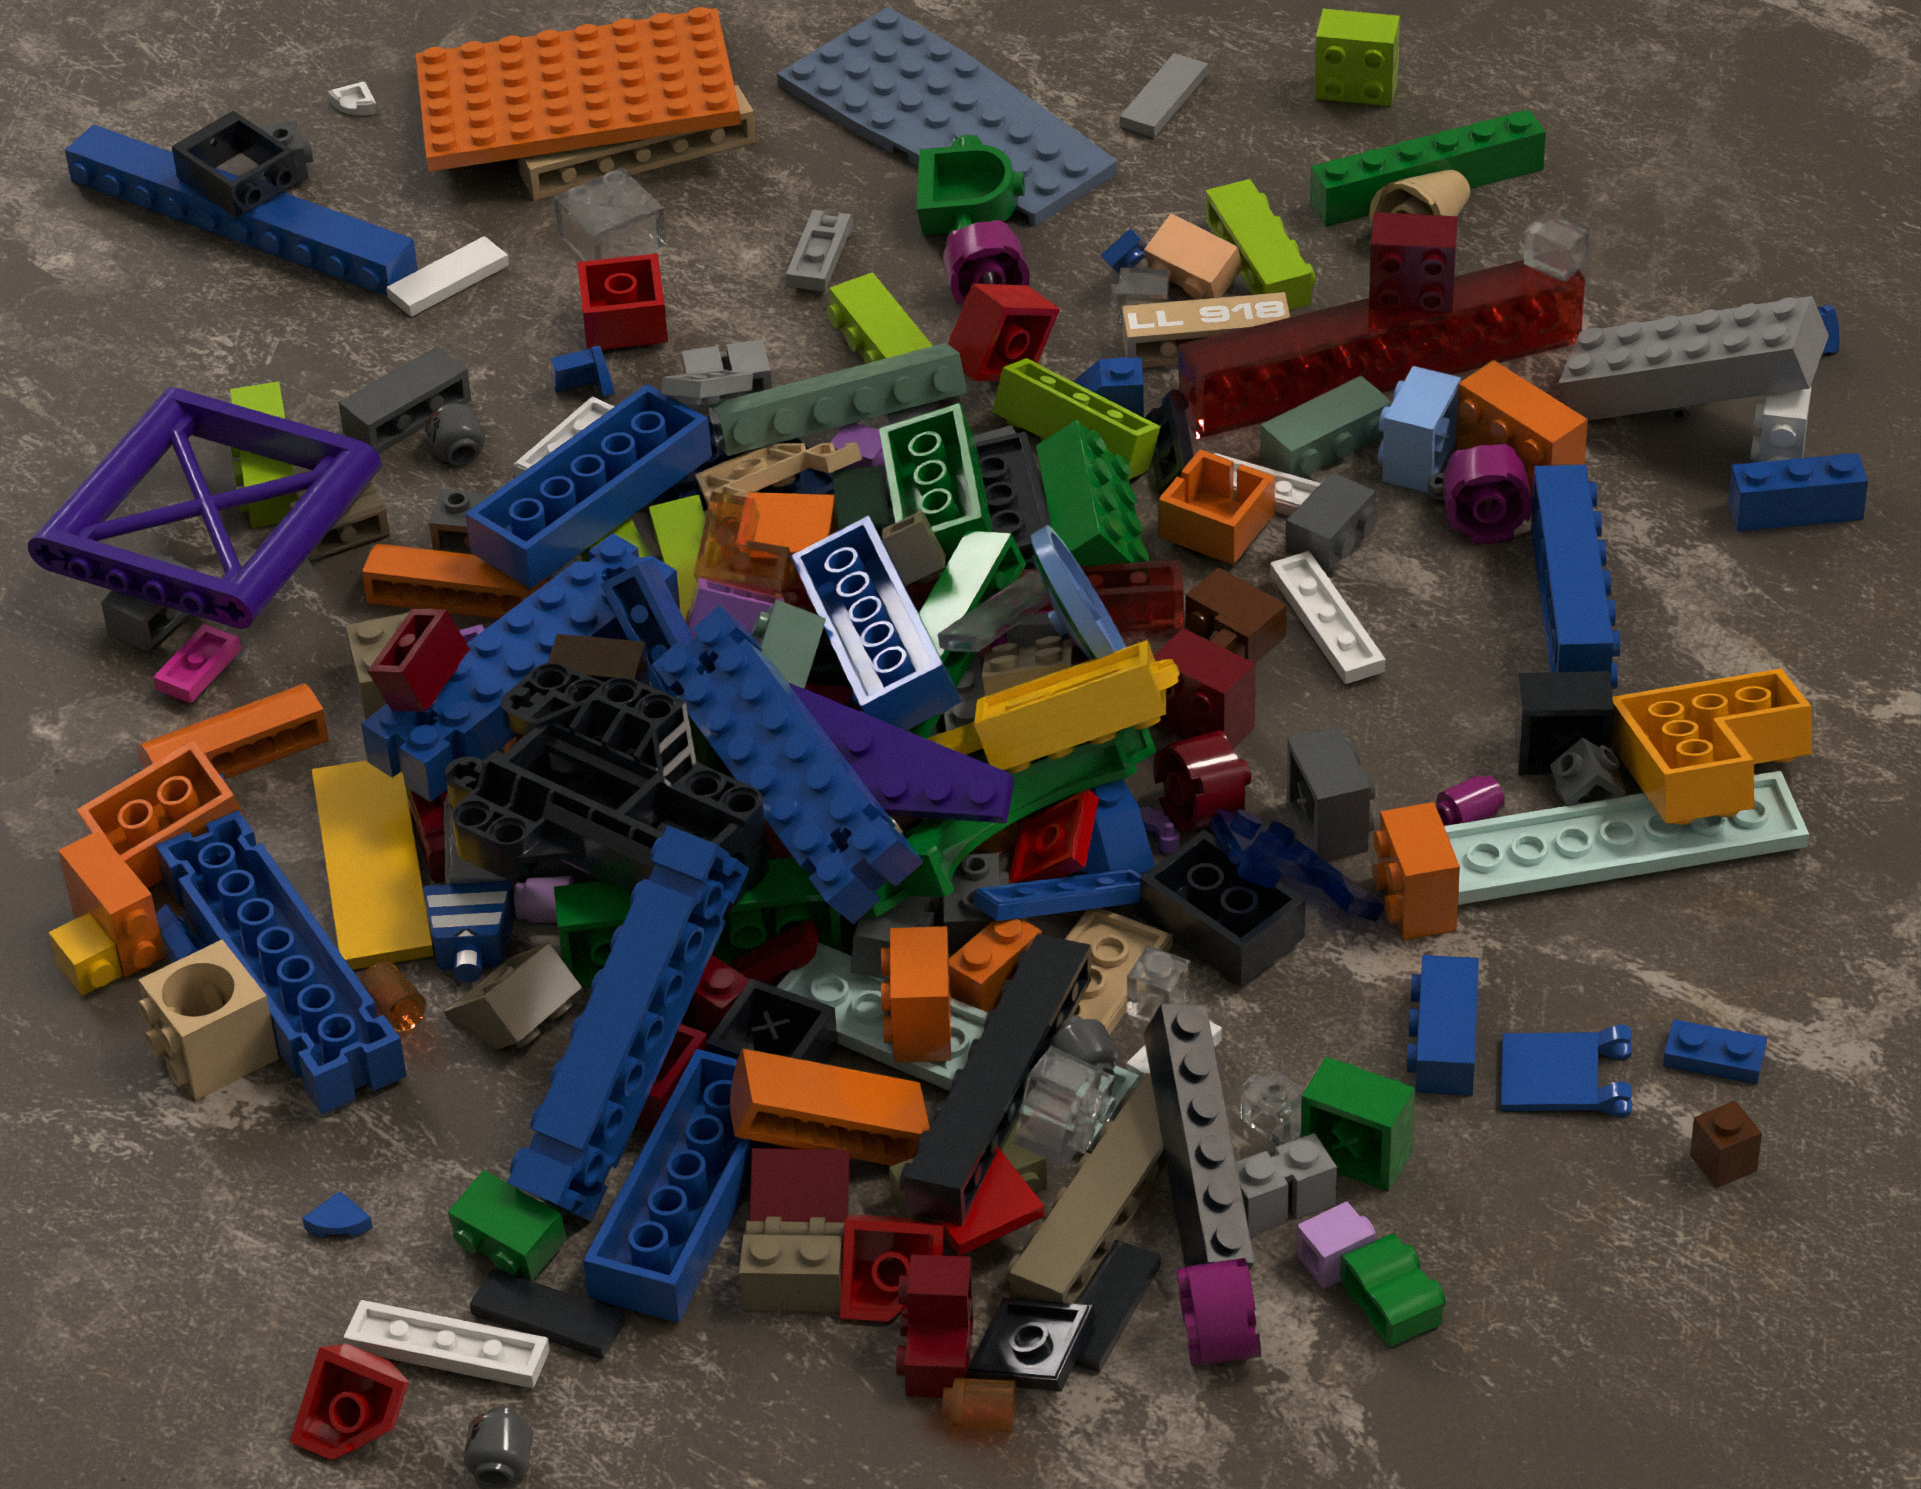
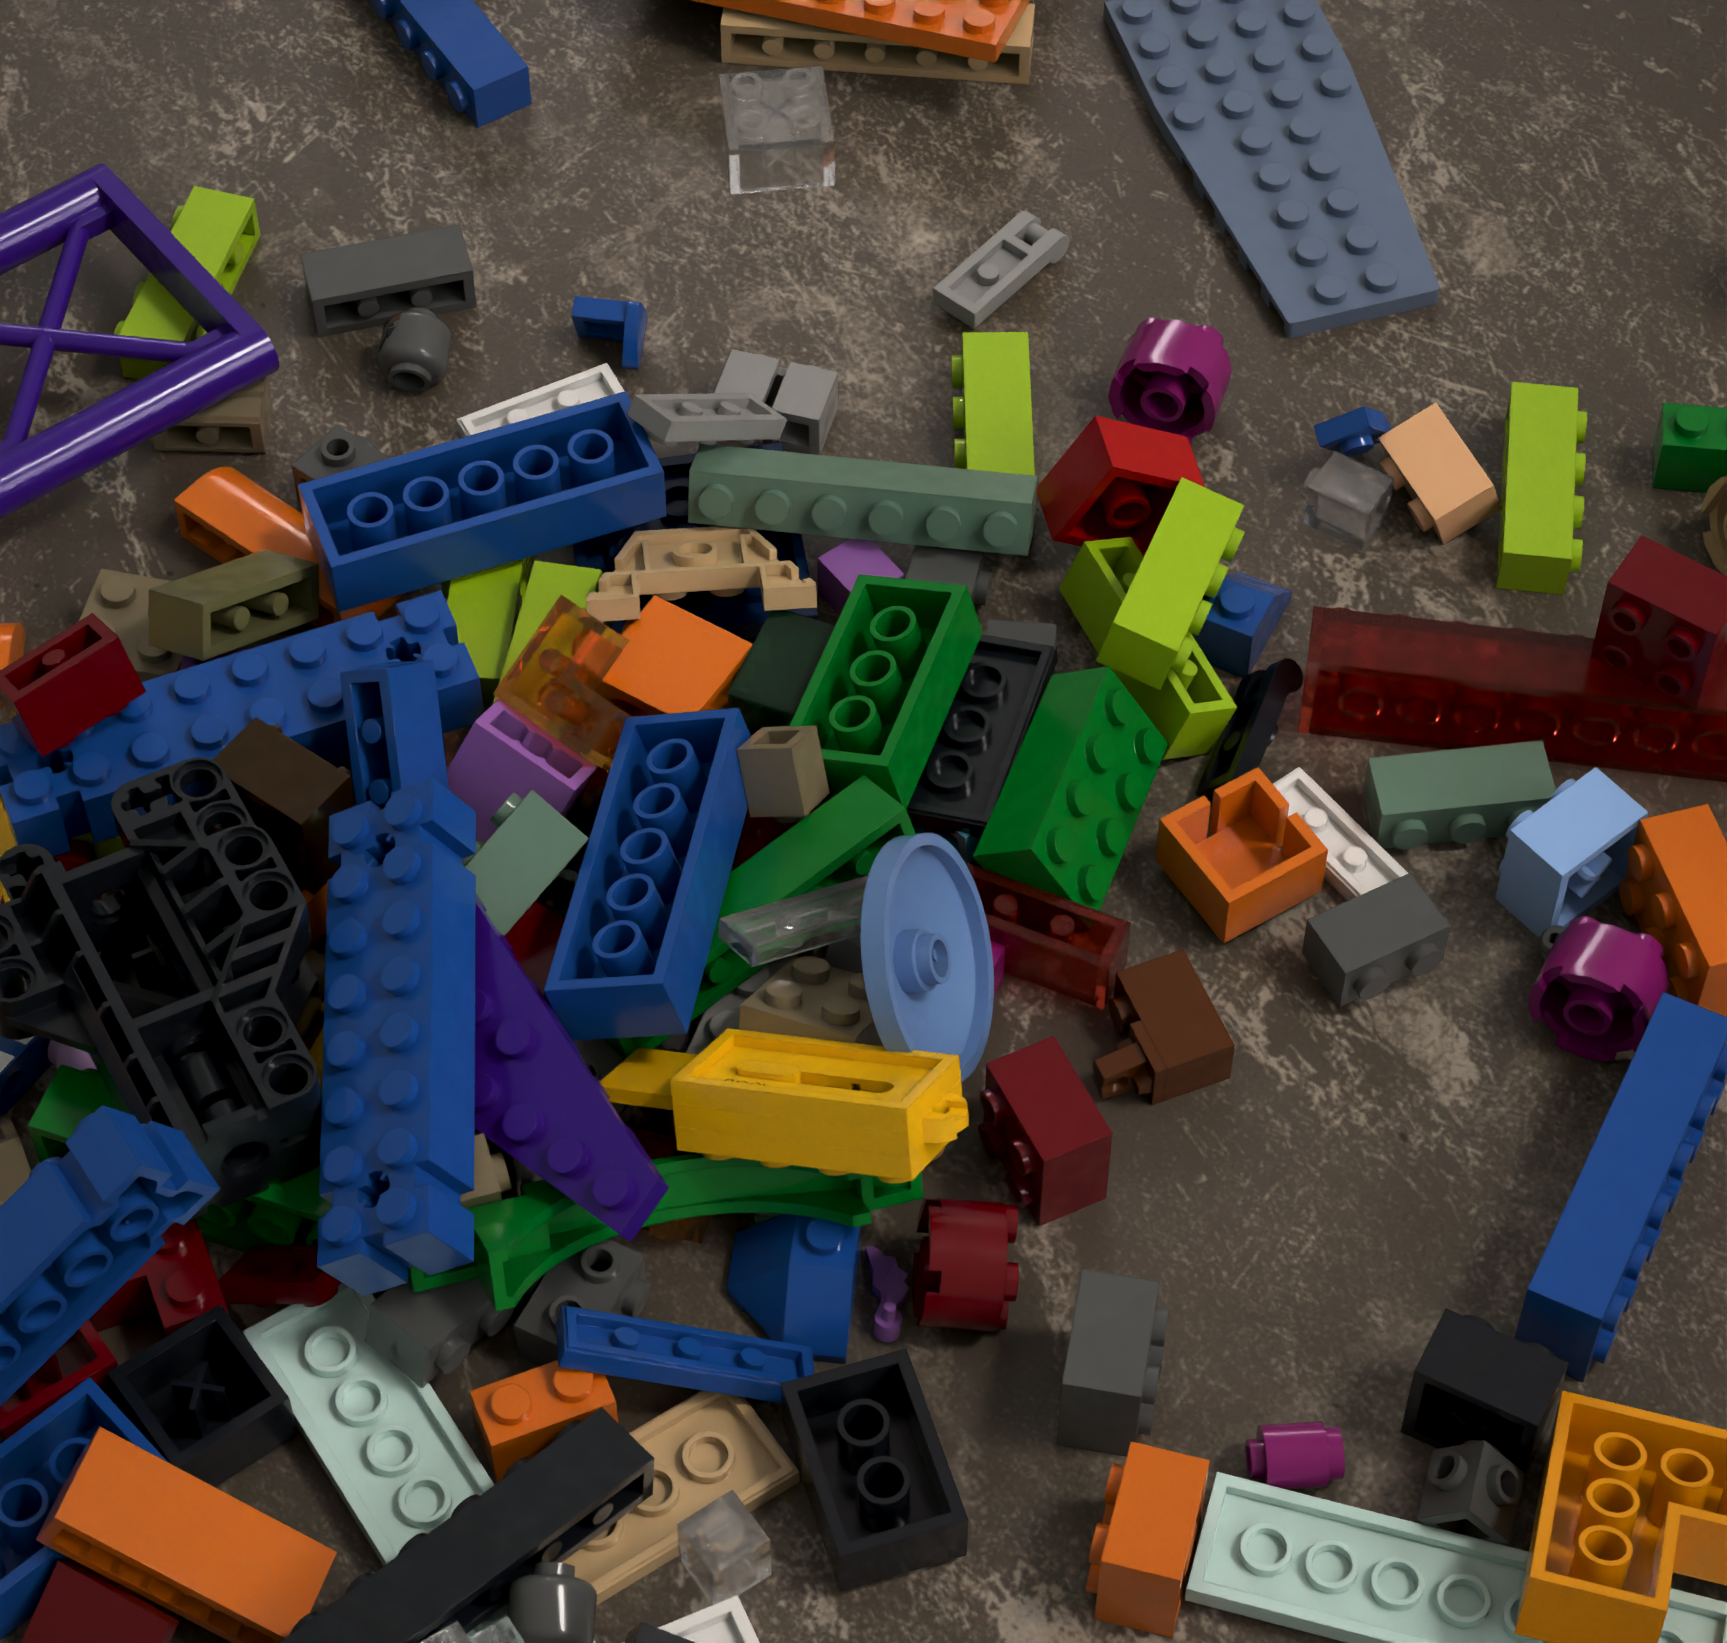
camera: 25 degrees right, 10 degrees up
(447, 276) = (553, 127): white tile -> none
(470, 598) = (233, 604): none -> olive brick
(622, 301) = (713, 249): red brick -> none
(917, 994) = (394, 1431): orange brick -> none
(965, 186) = (1218, 256): green piece -> none
(1055, 840) = (723, 1270): red tile -> none
(1079, 366) = (1170, 585): none -> lime brick
(1158, 328) = (1380, 573): tan brick -> none
(1163, 95) = (1559, 216): light grey tile -> none
(1273, 852) = (994, 1420): clear blue wing -> none
(1327, 617) = (1290, 1080): white plate -> none

